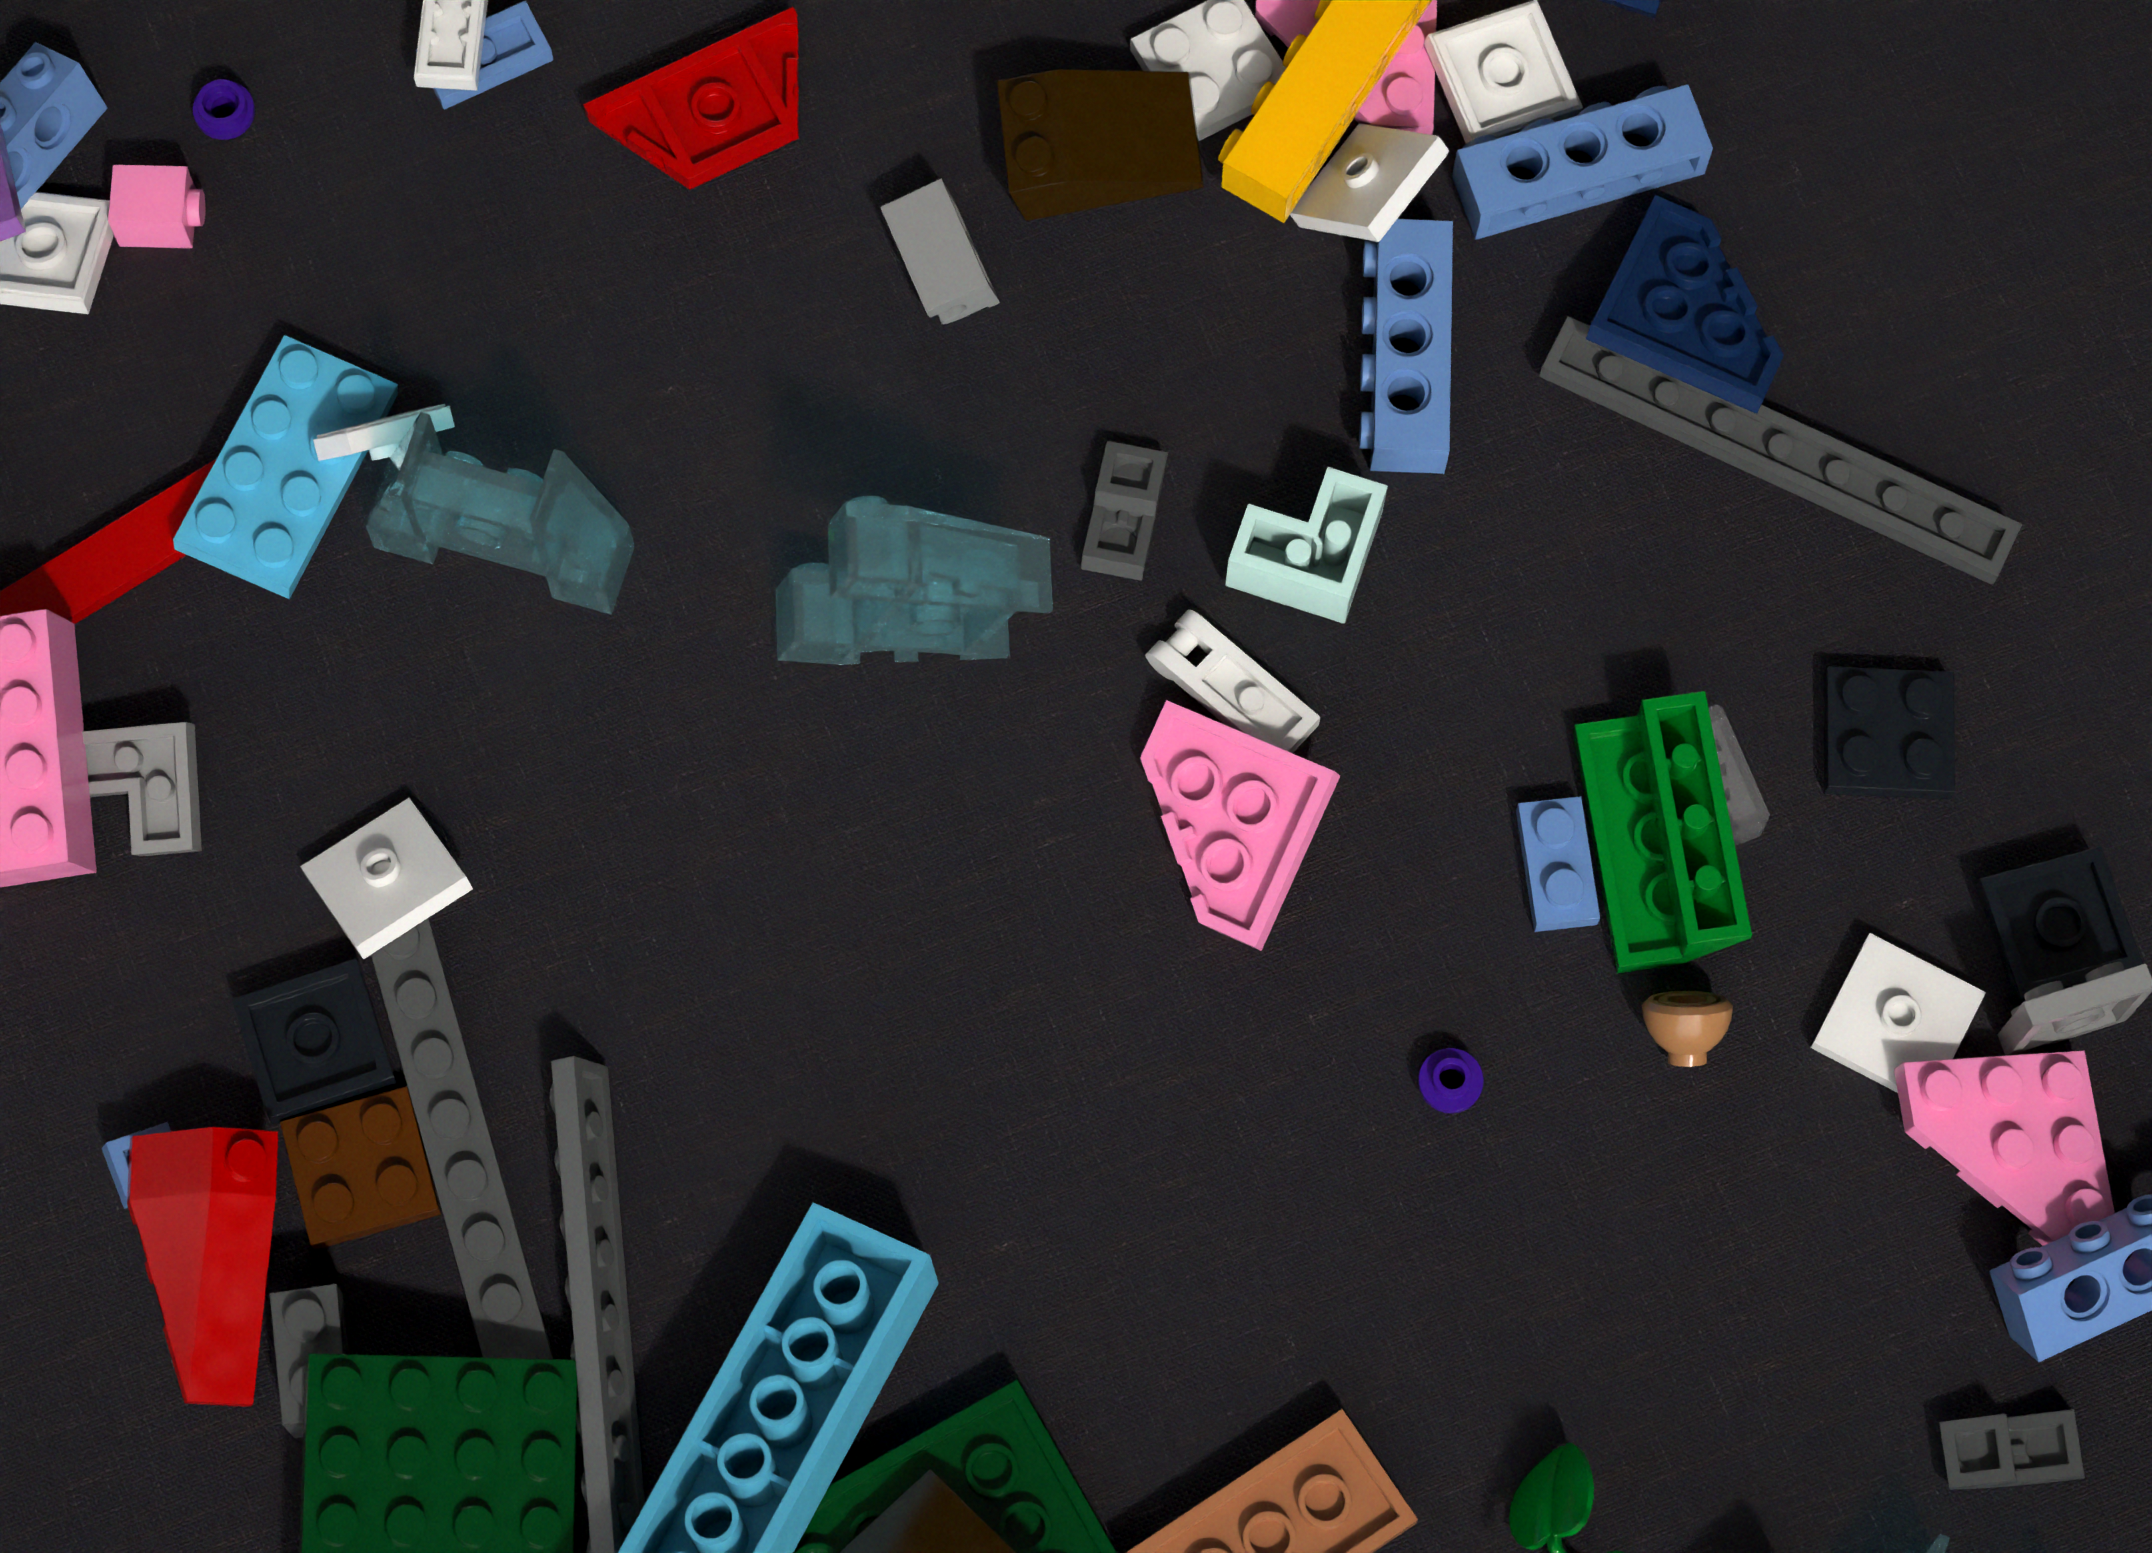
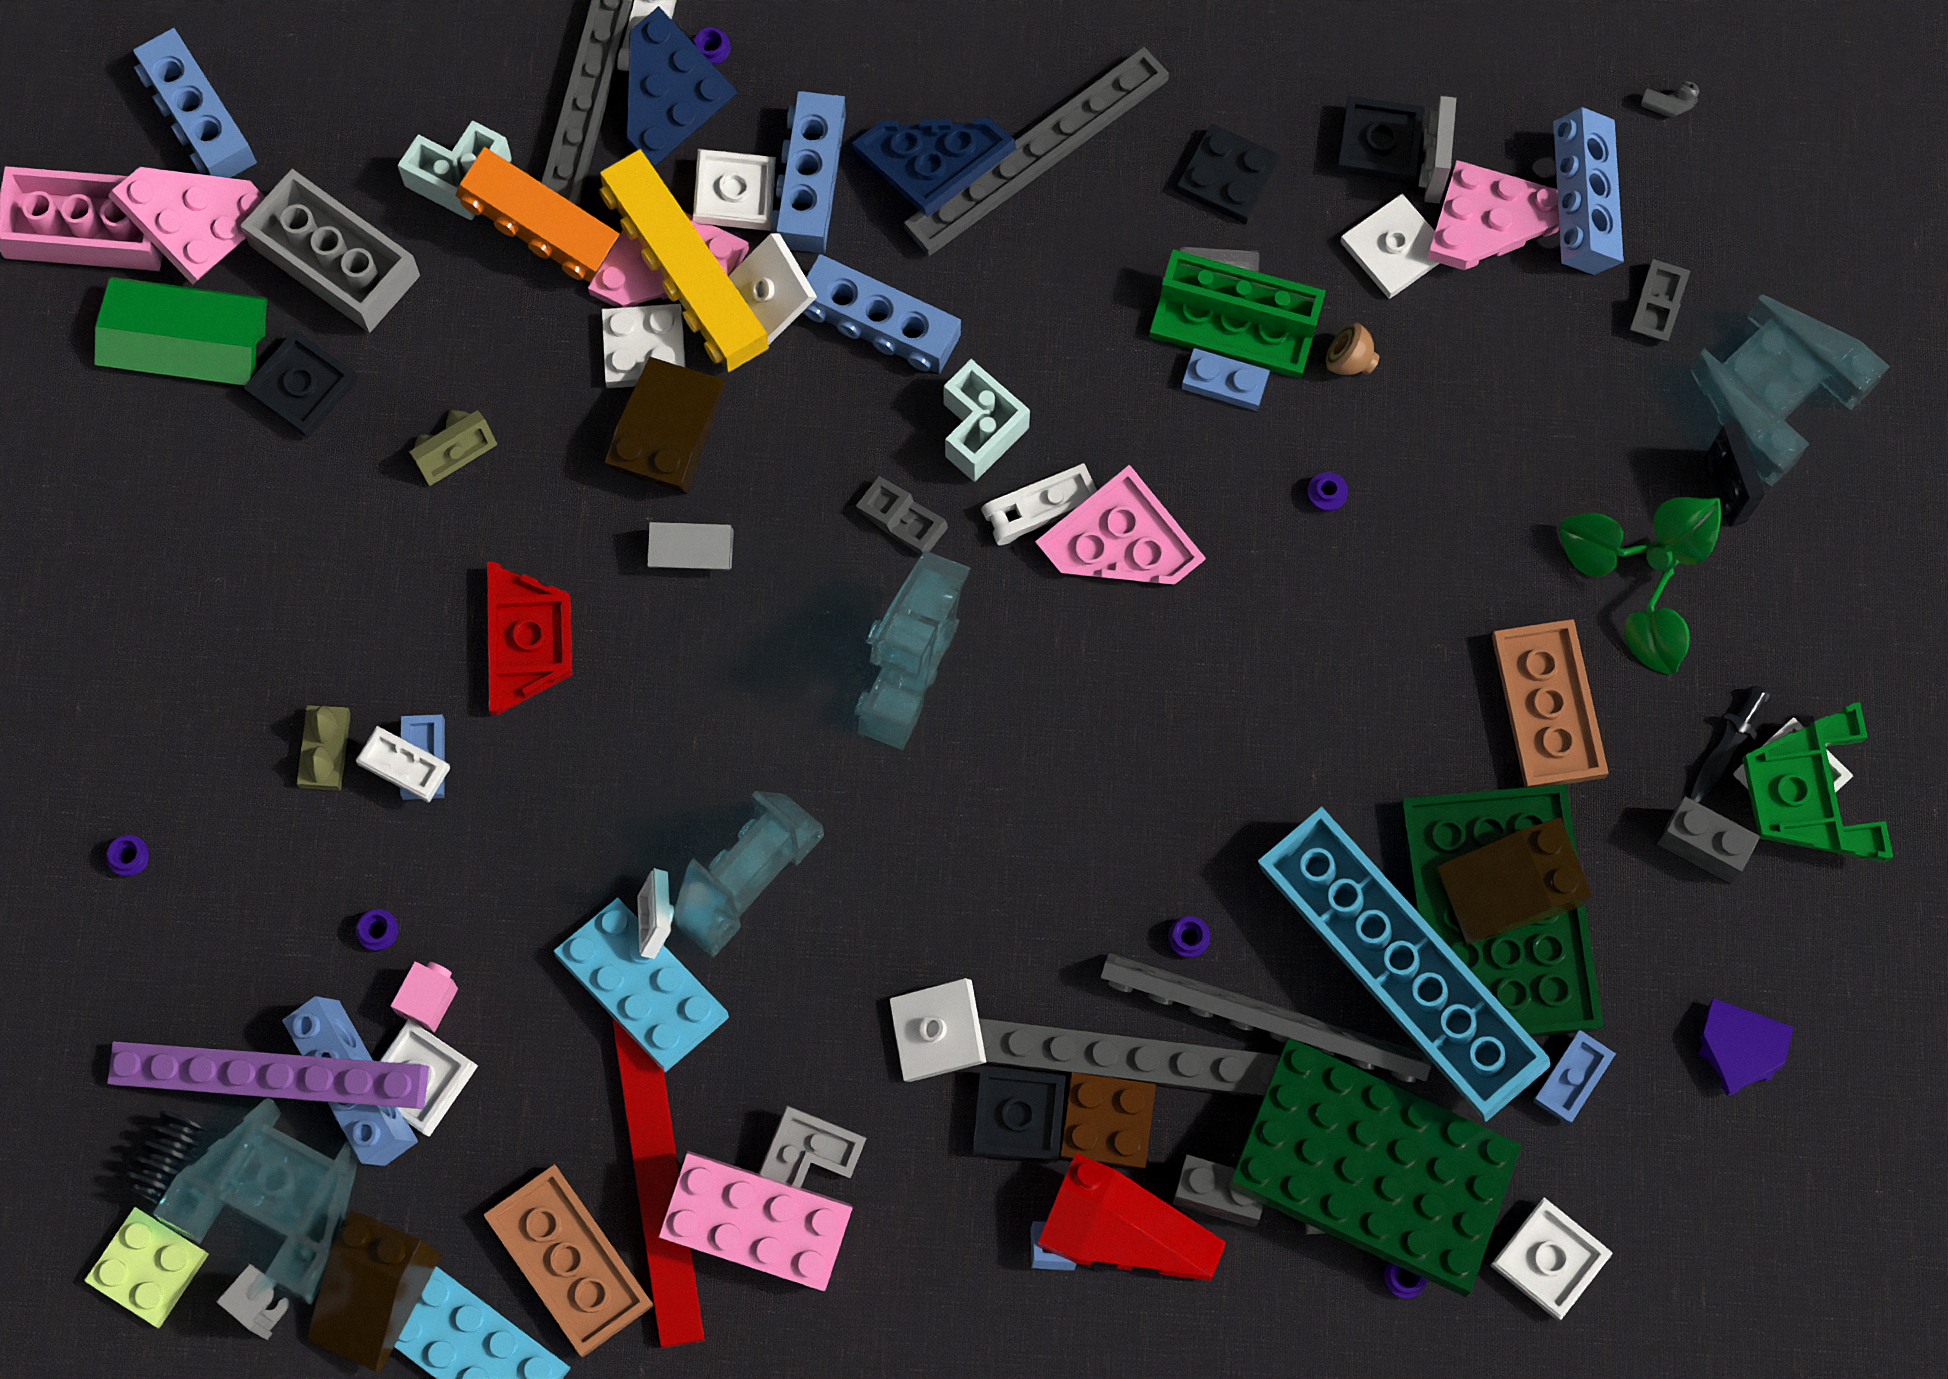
camera: 65 degrees left, 0 degrees up
(673, 1147) = (1193, 925): none -> dark purple plate

